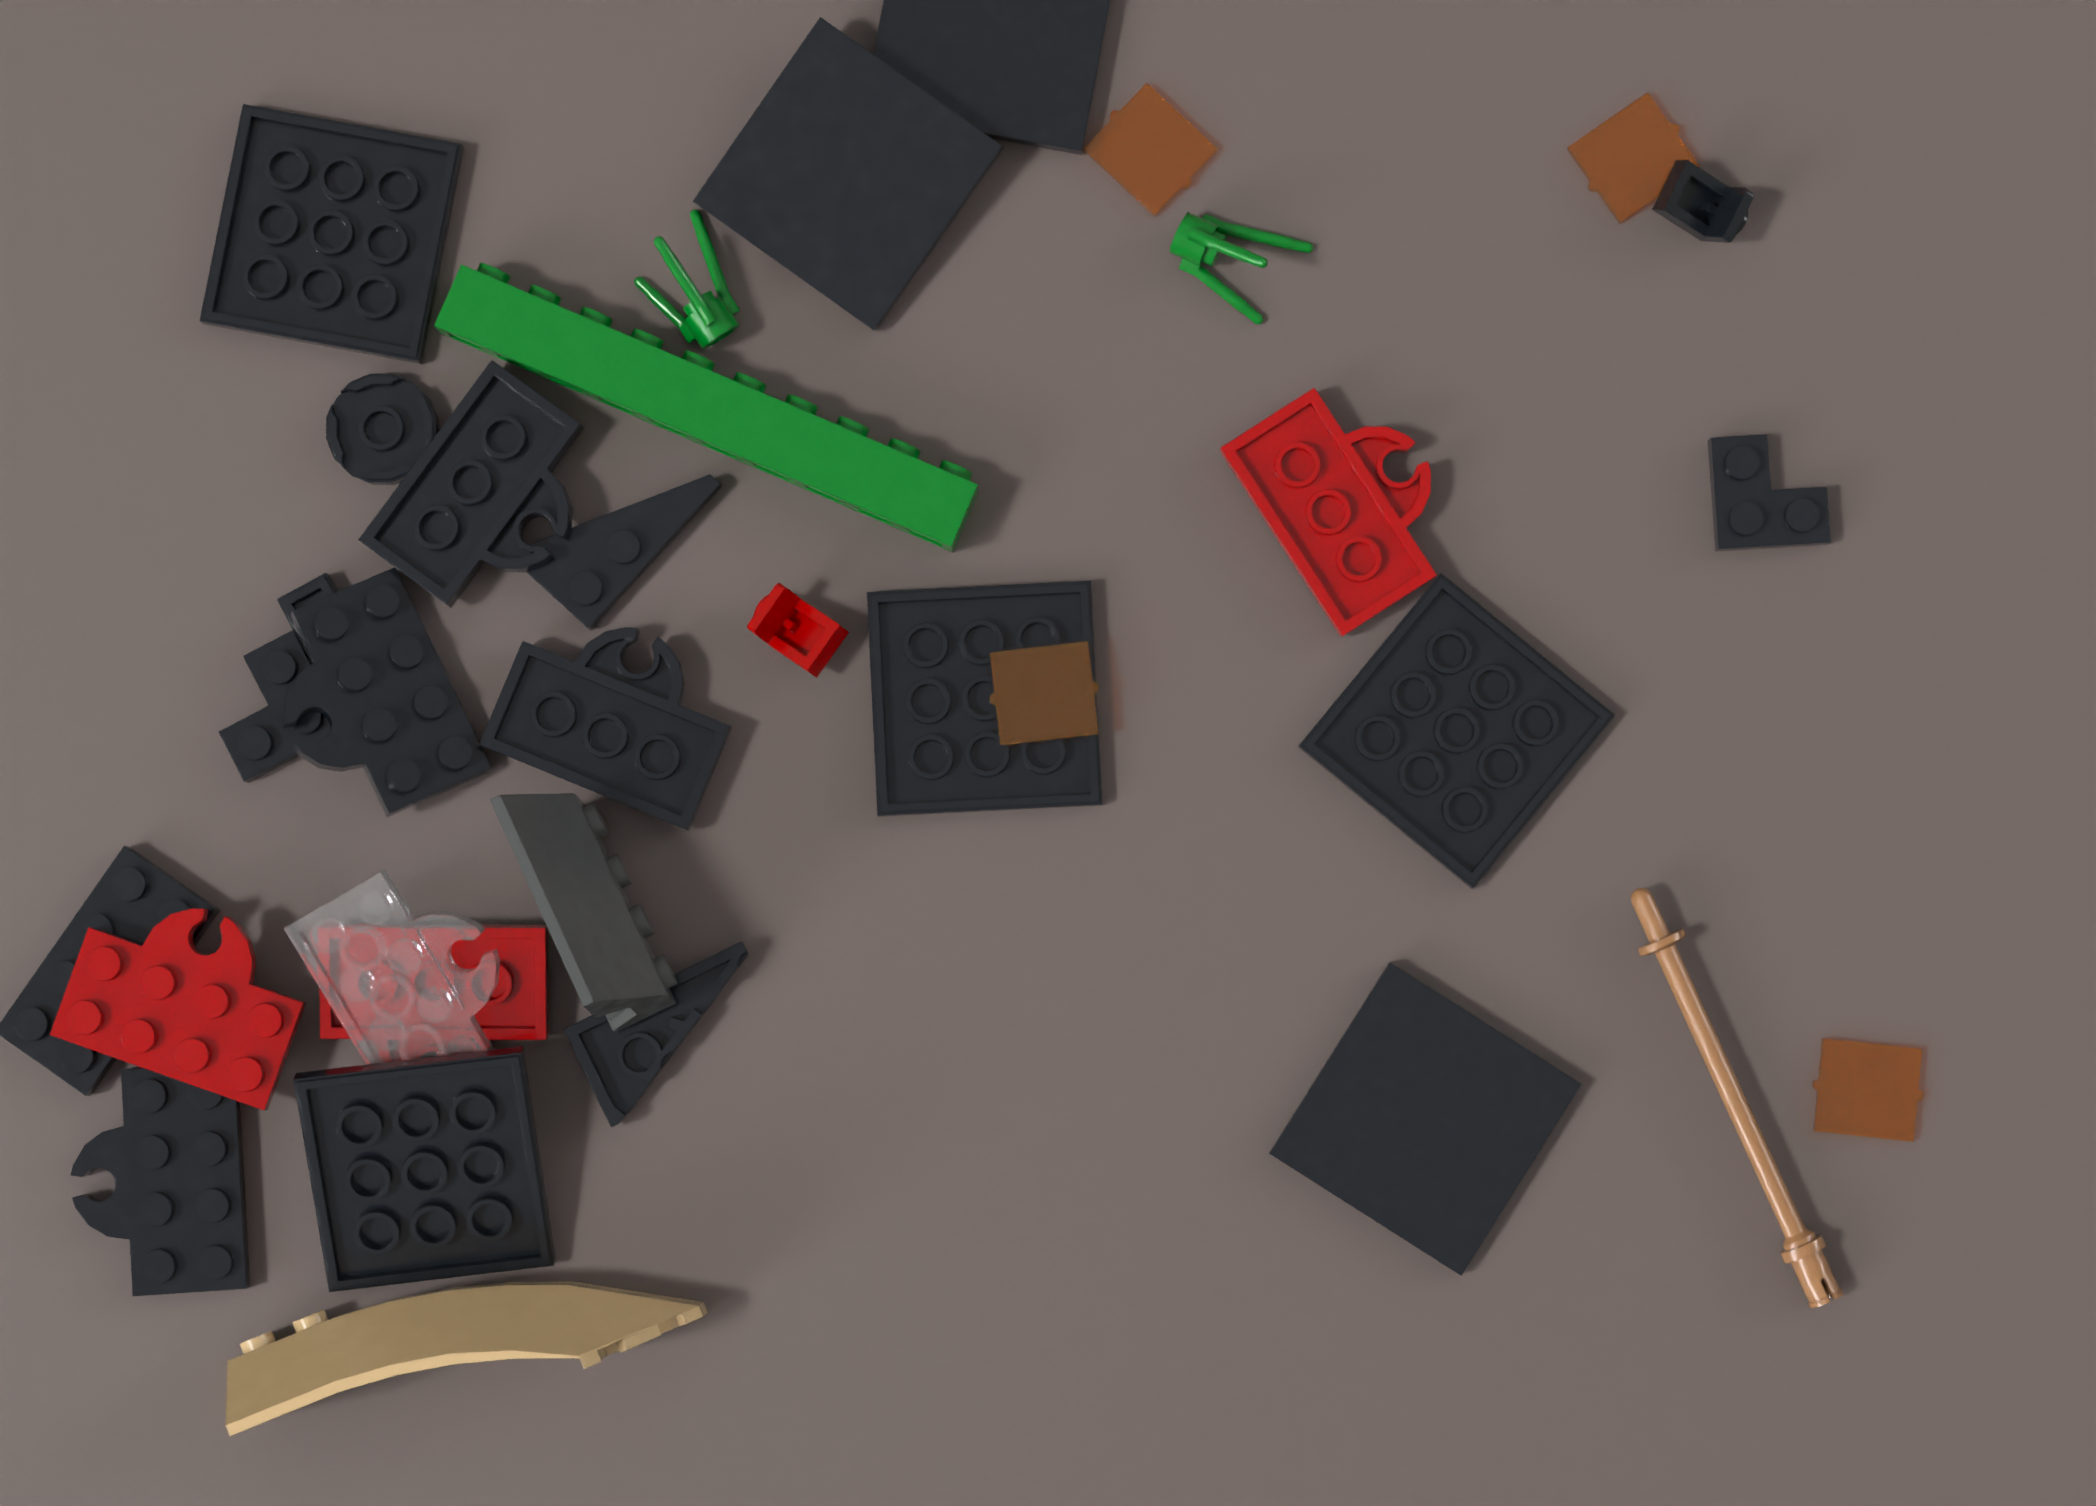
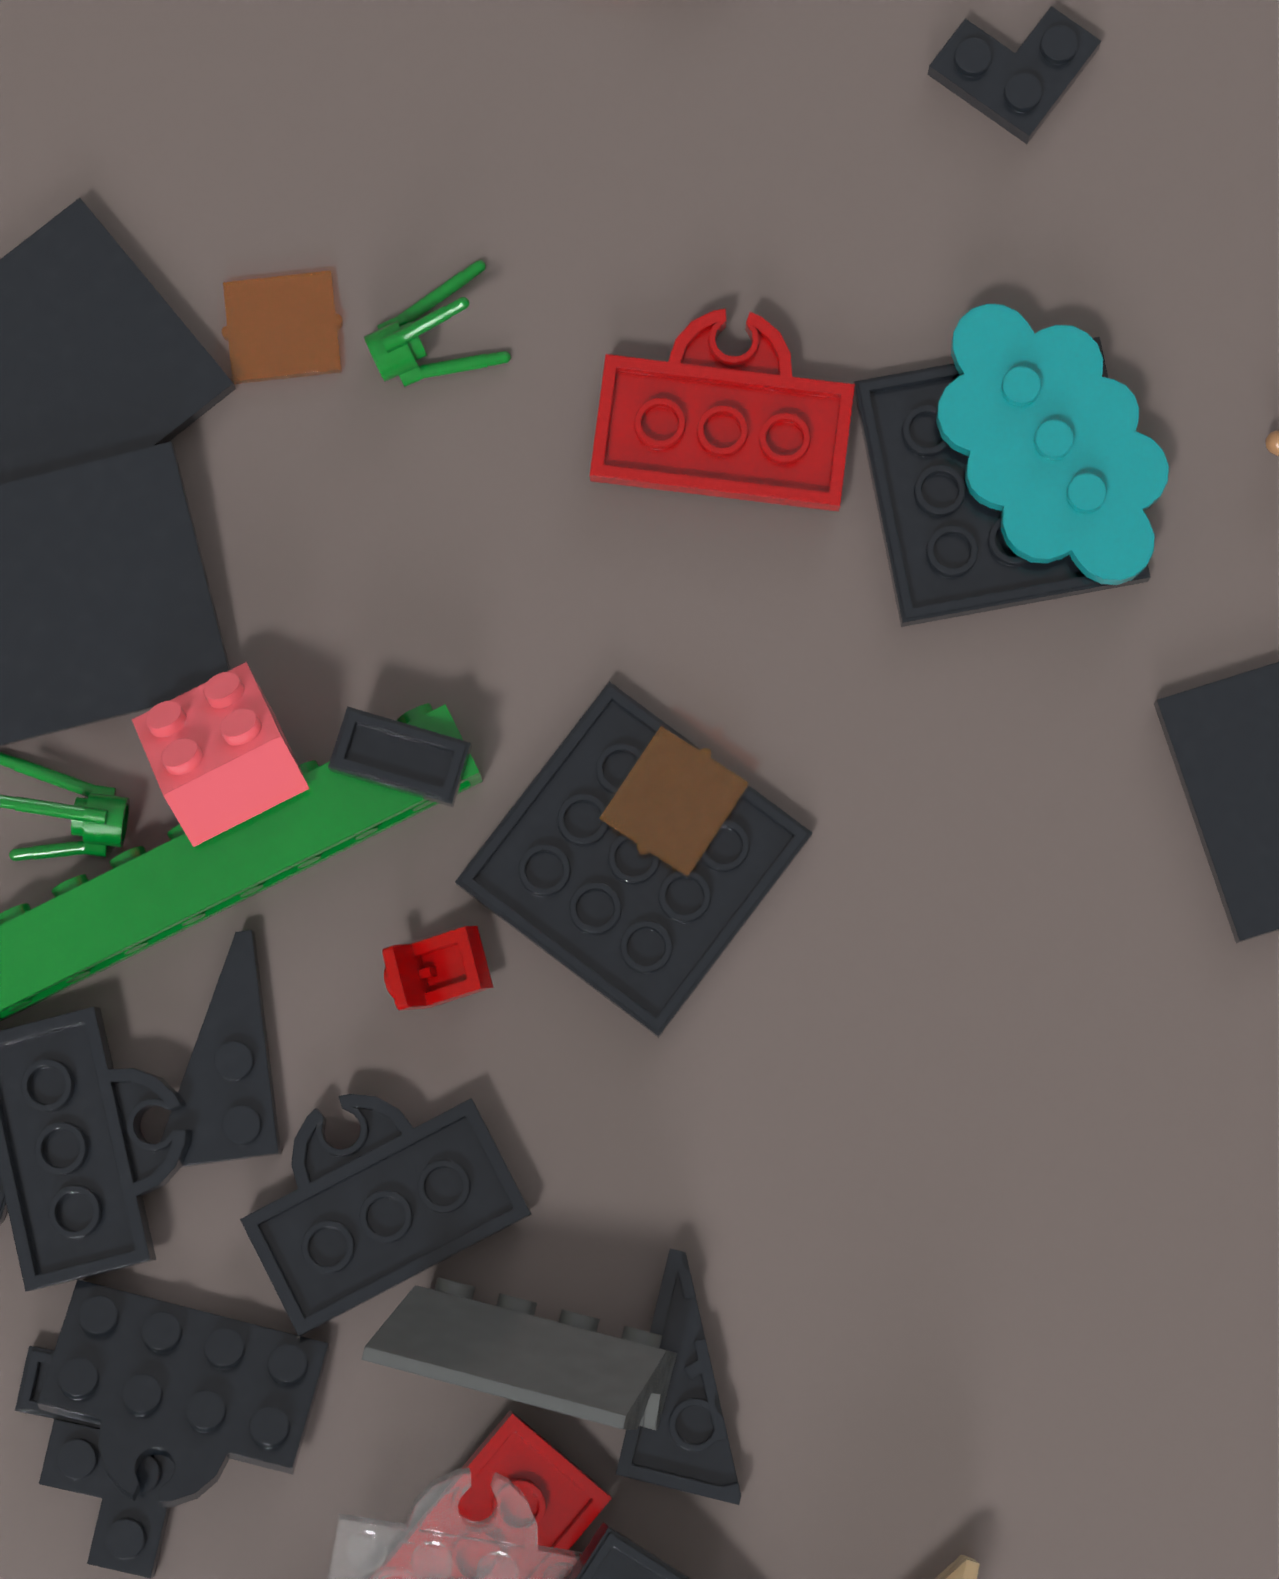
camera: 50 degrees left, 5 degrees down
(816, 362) = (219, 754): none -> coral brick
(915, 485) = (400, 756): none -> black tile
(1508, 744) = (1052, 444): none -> teal plate

